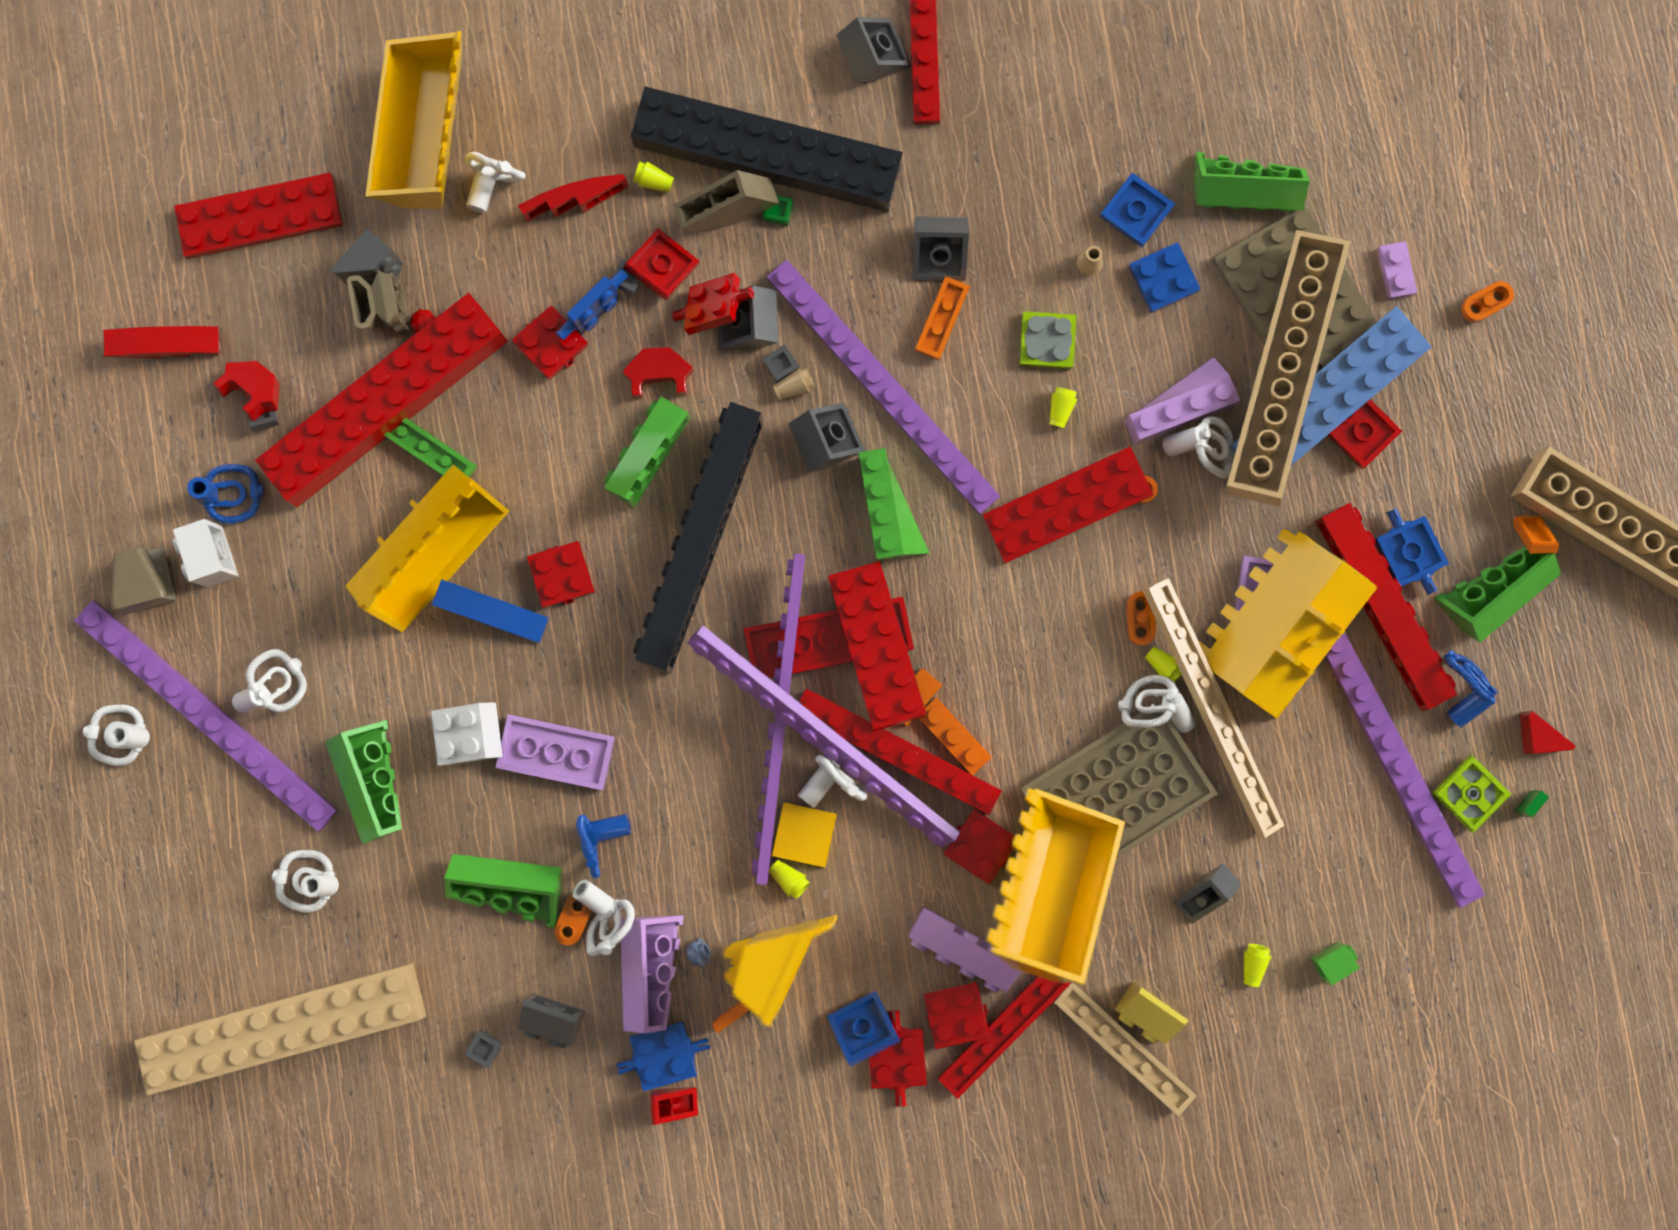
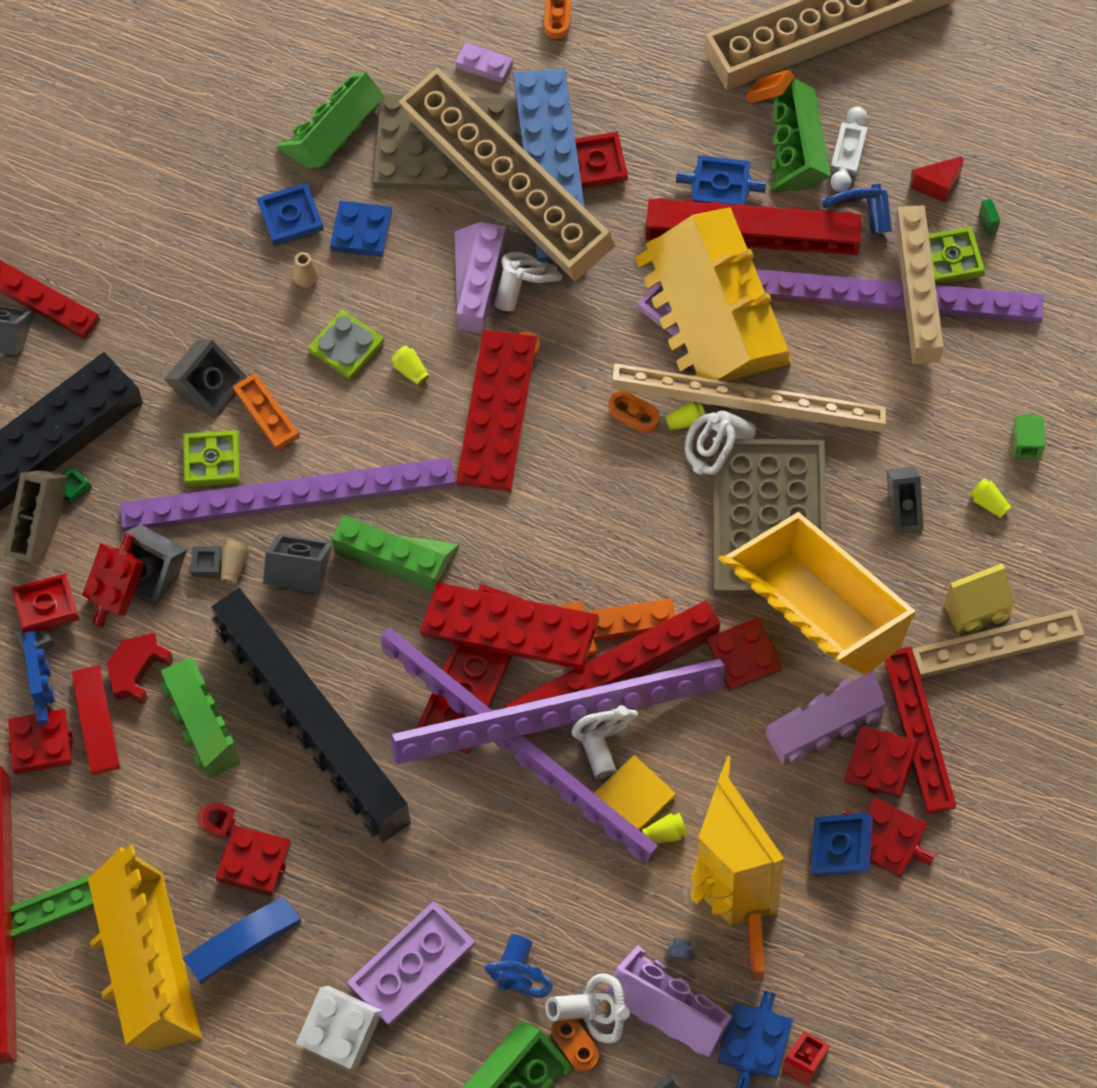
camera: 55 degrees left, 20 degrees down
(572, 524) = (216, 819): none -> red plate
(592, 374) = (96, 720): none -> red slope
(872, 304) = (211, 458): none -> lime piece
(1418, 786) = (918, 285): none -> tan brick
(1520, 640) = (848, 149): none -> white plate

